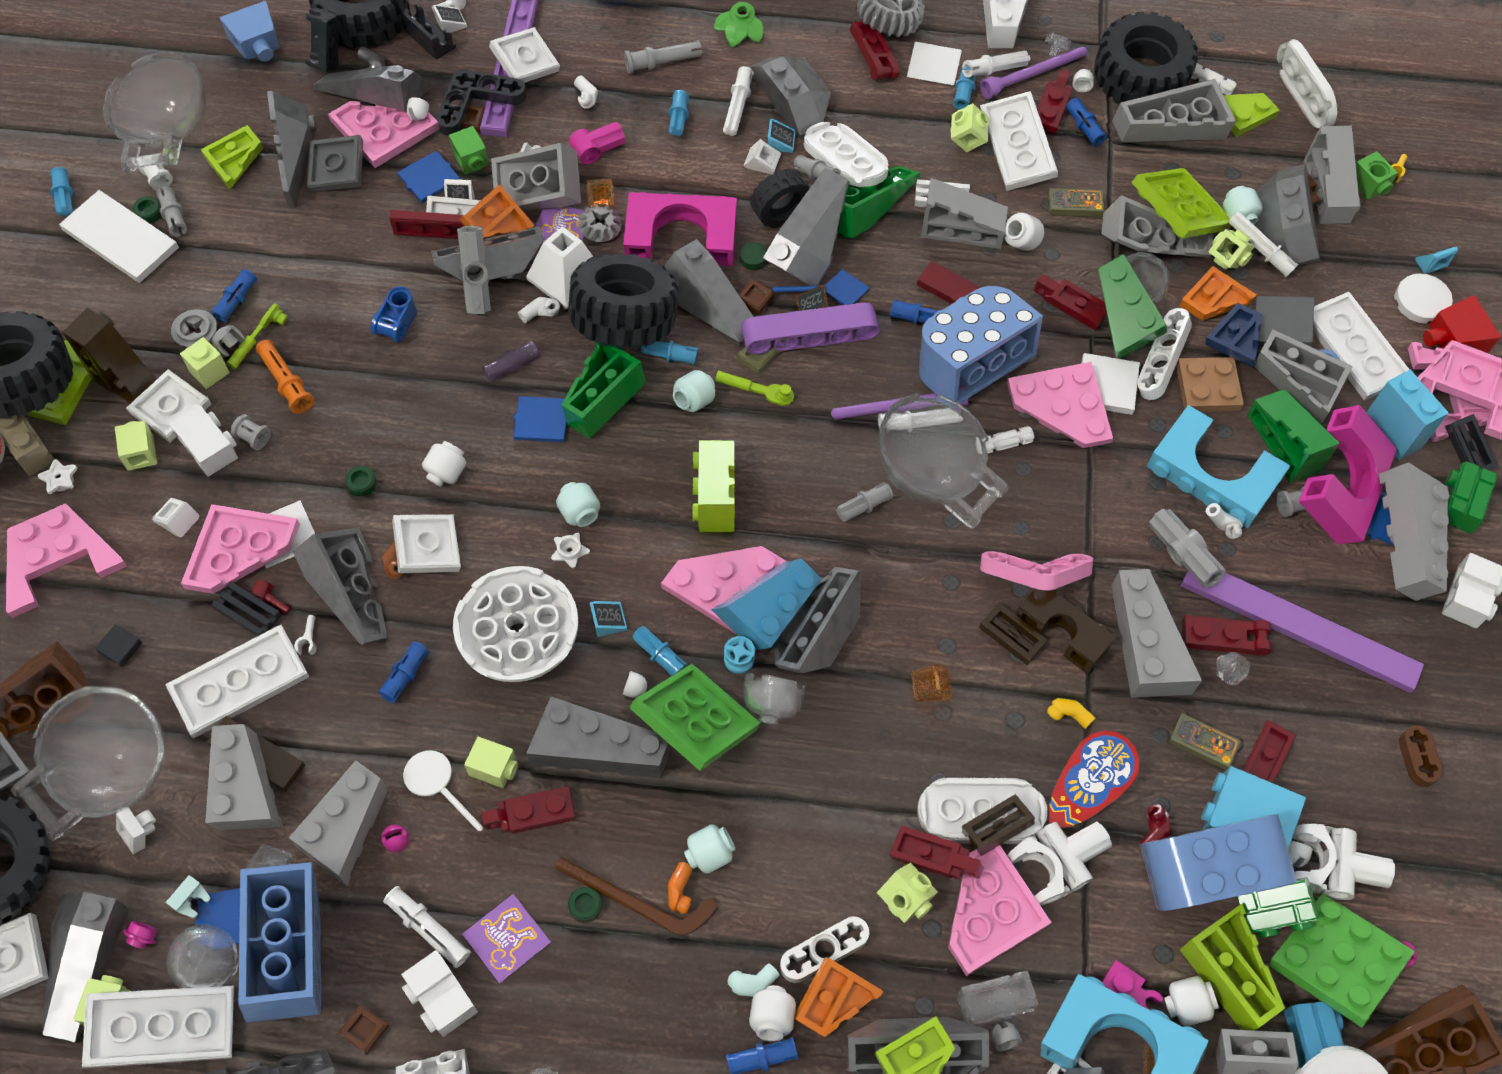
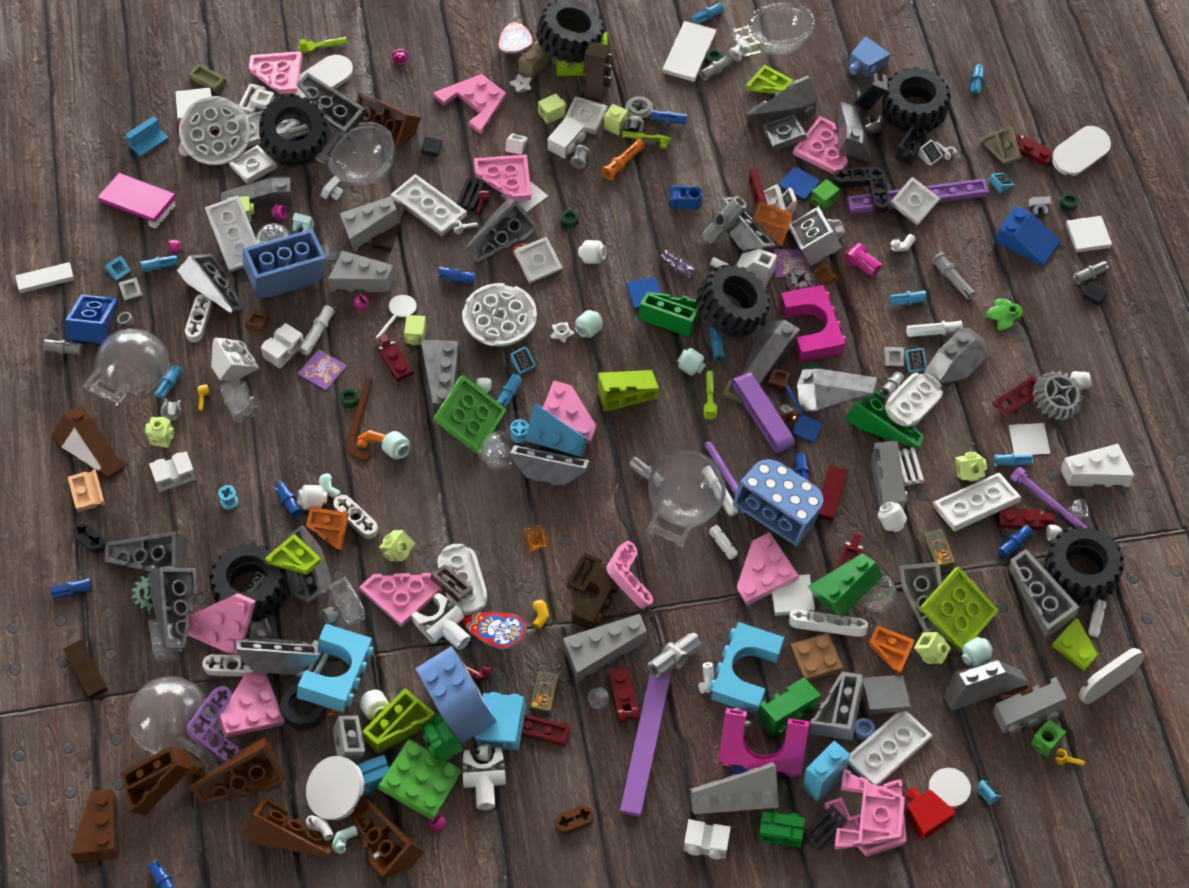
camera: 75 degrees right, 5 degrees down
(417, 108) = (839, 157): white hinge -> none
(771, 189) = (853, 362): black tyre -> none
(934, 854) = (423, 554): dark red hinge -> none
(987, 65) = (1036, 469): white axle -> none
(1123, 980) = (374, 673): dark pink plate -> none
(1237, 334) = (863, 663): dark blue wing -> none
(1273, 254) = (948, 670): white axle -> none

